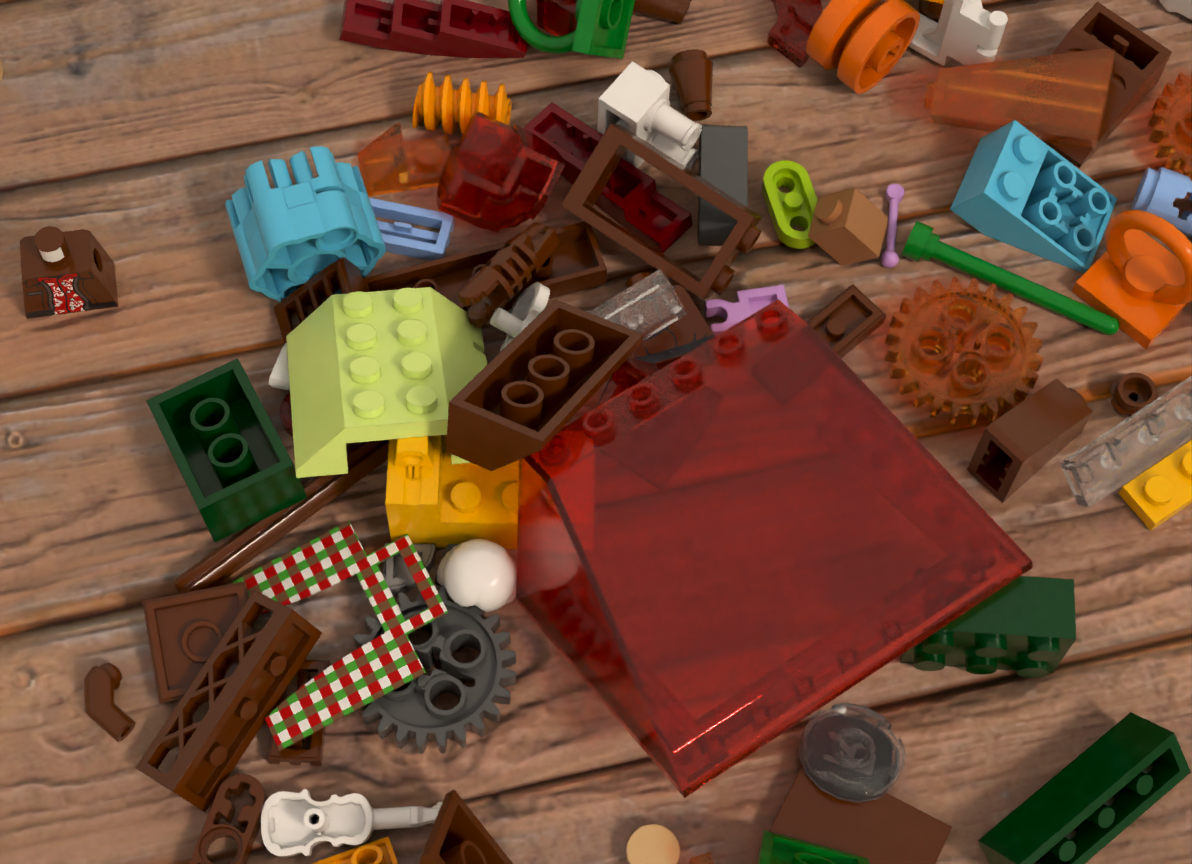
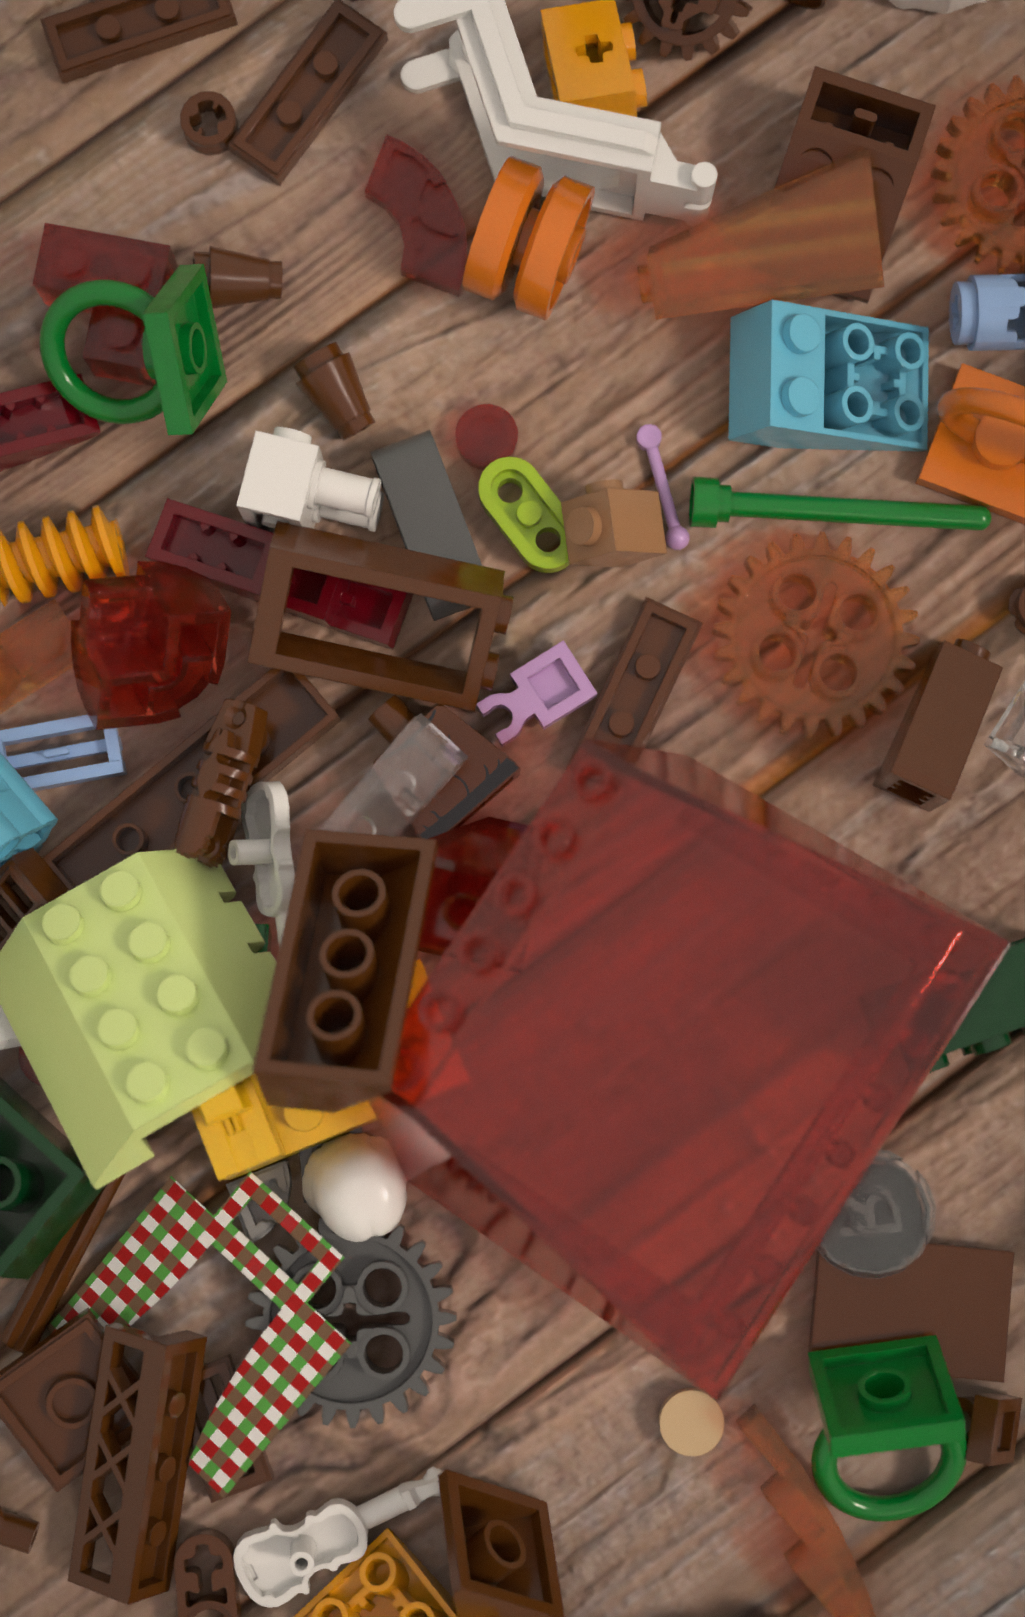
camera: 20 degrees left, 20 degrees up
(782, 145) = (486, 435): none -> clear red tile

